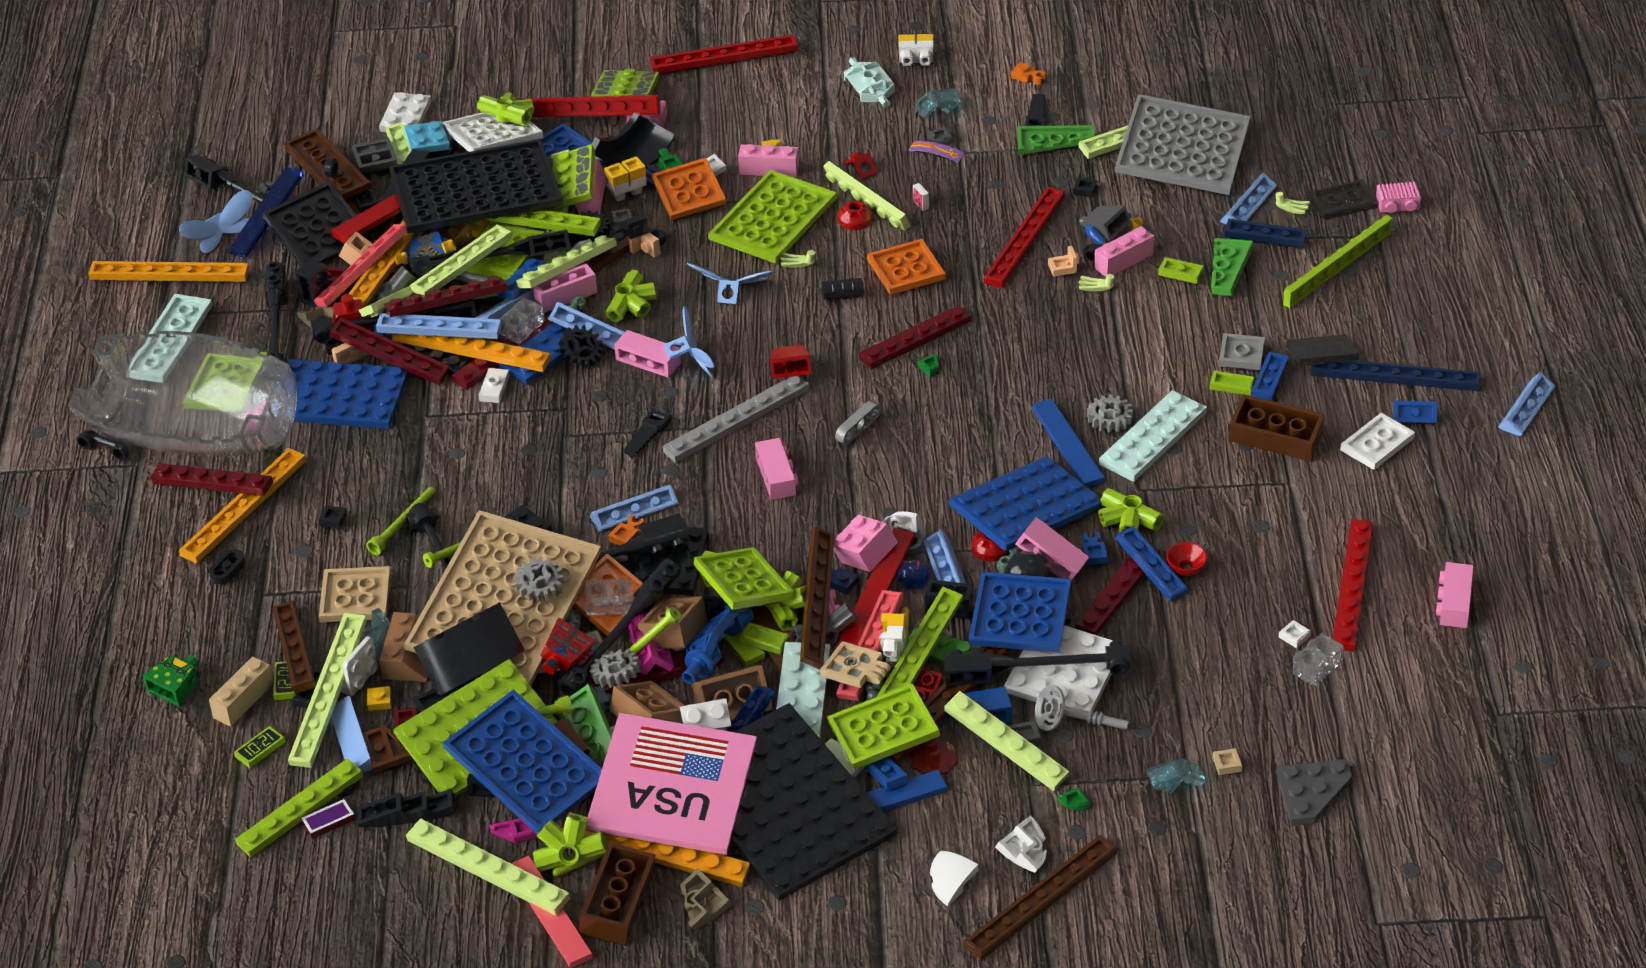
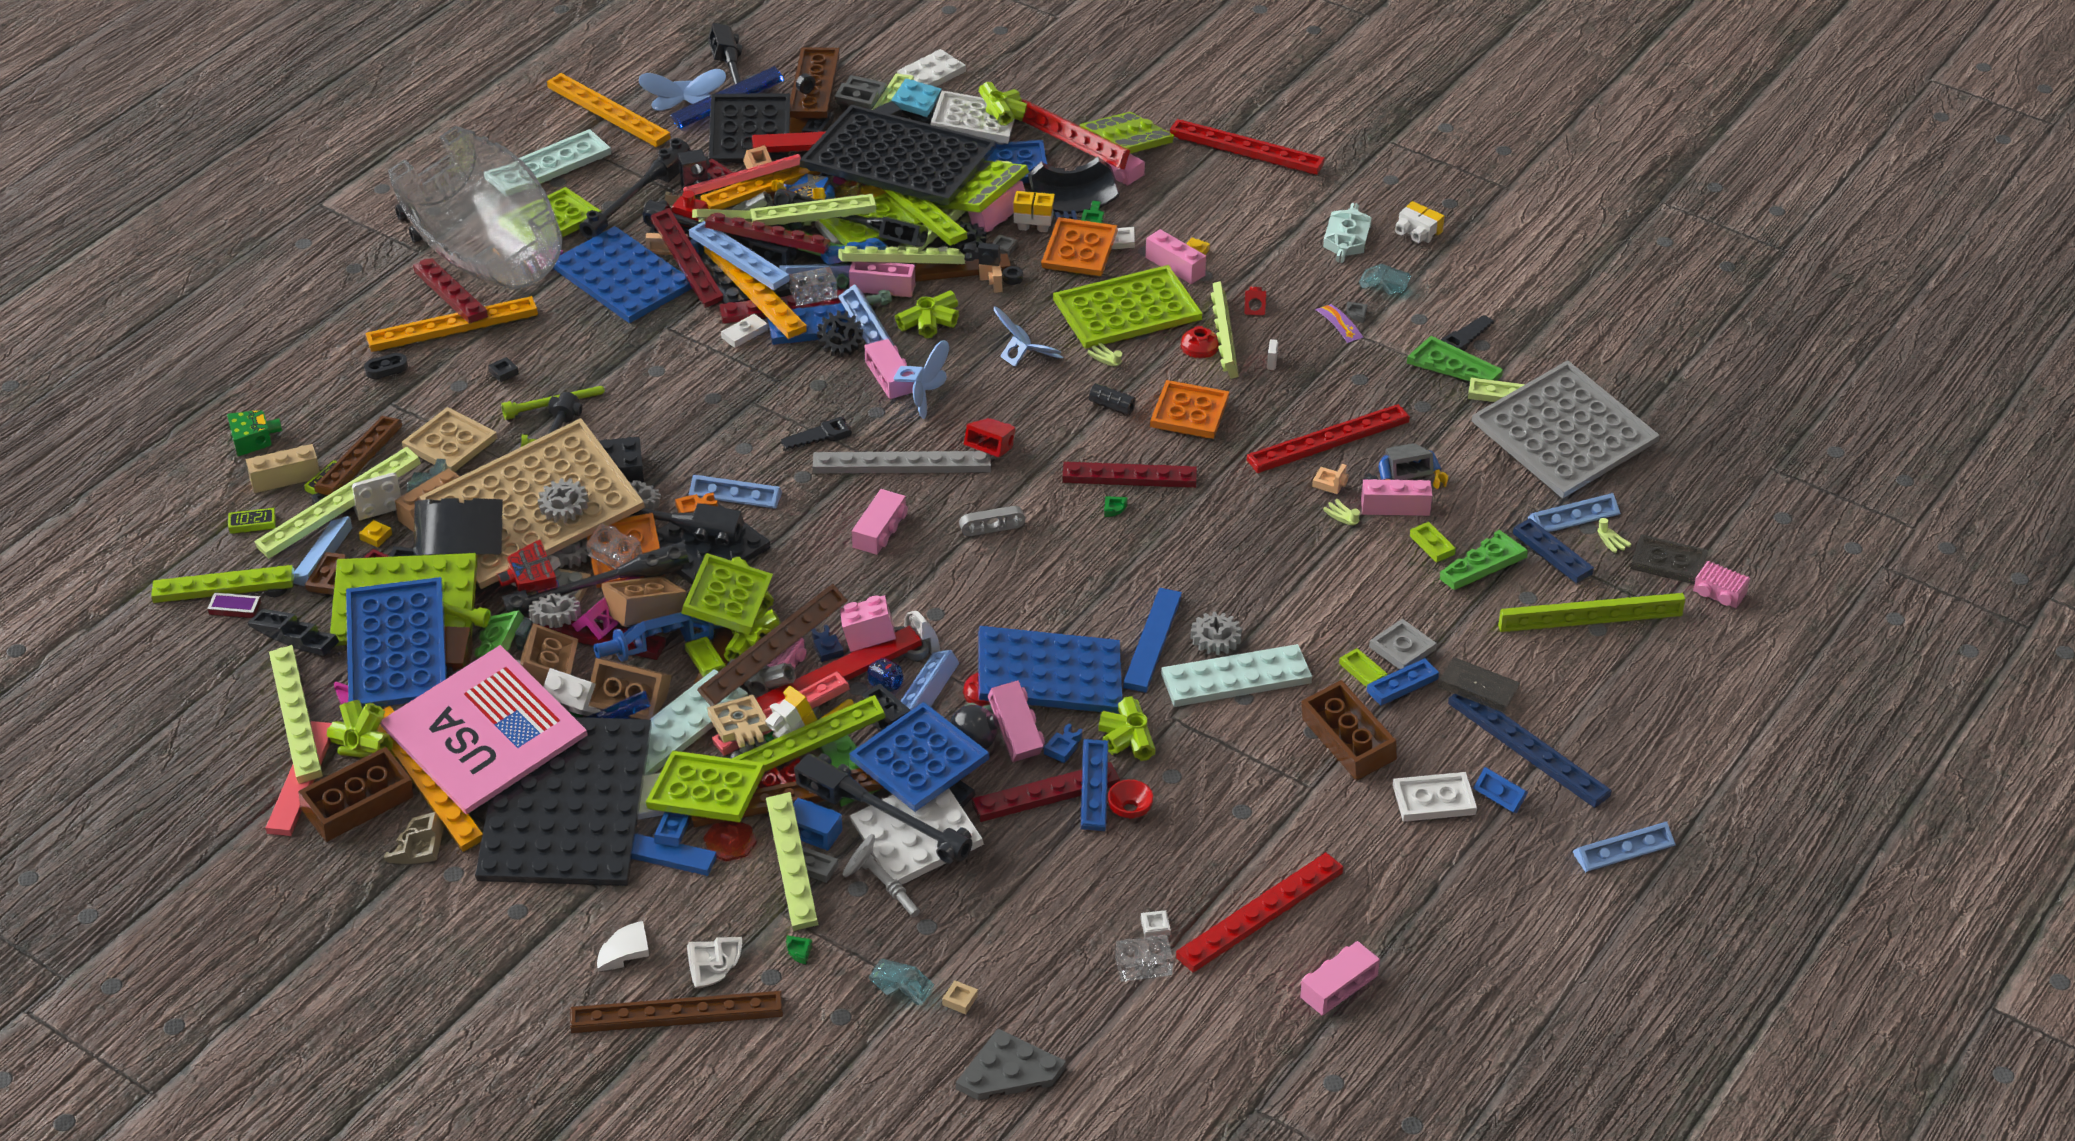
camera: 35 degrees right, 0 degrees up
(672, 616) = (615, 587): lime bar -> none
(747, 654) = (682, 662): lime tile -> none
(1025, 73) = (1500, 293): orange plate -> none
(1085, 187) = (1434, 422): black tile -> none

